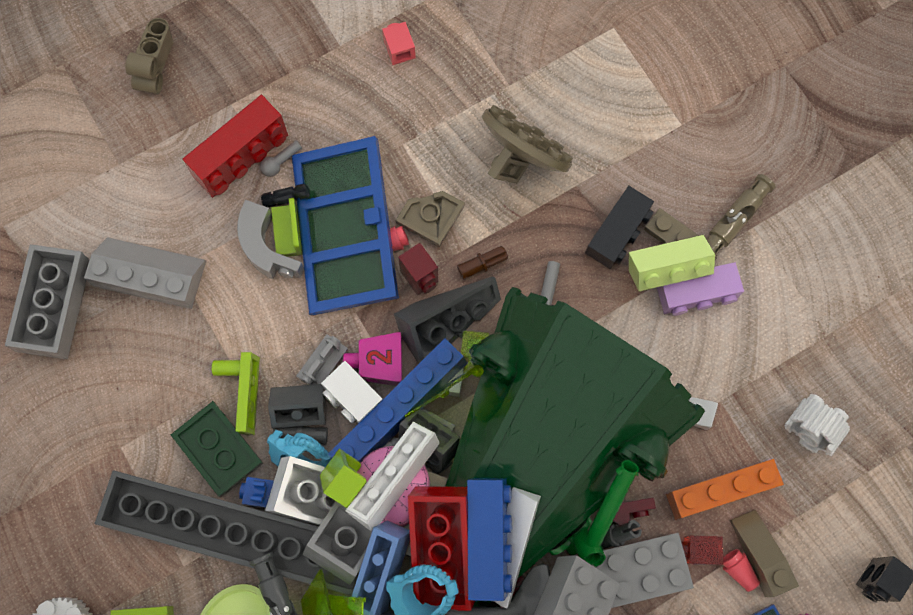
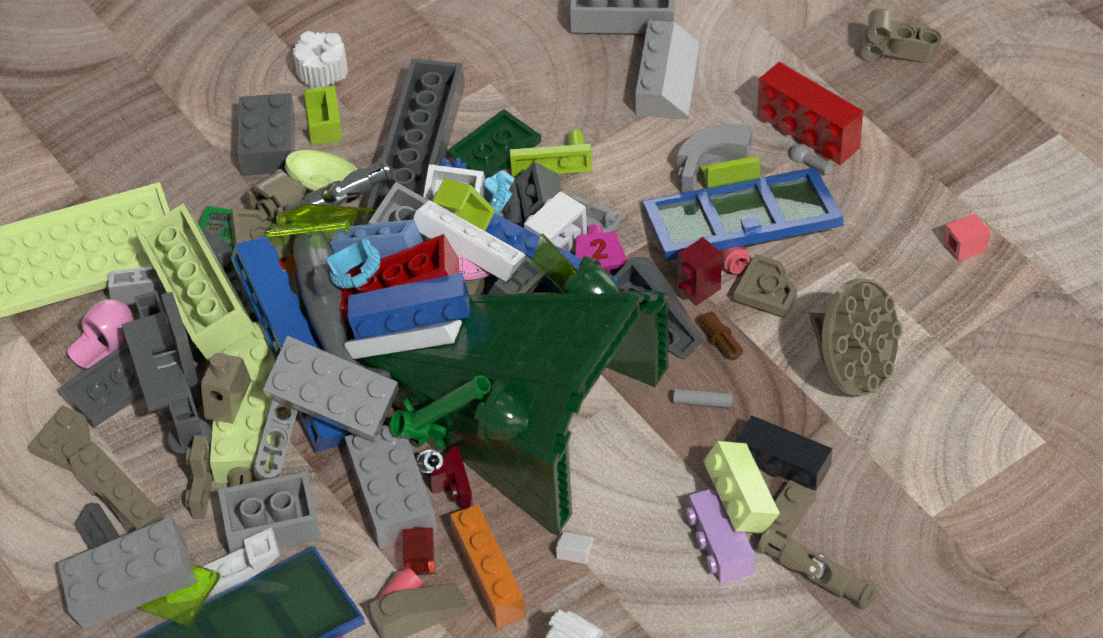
camera: 90 degrees right, 25 degrees down
(282, 195) = (768, 164): black axle -> none

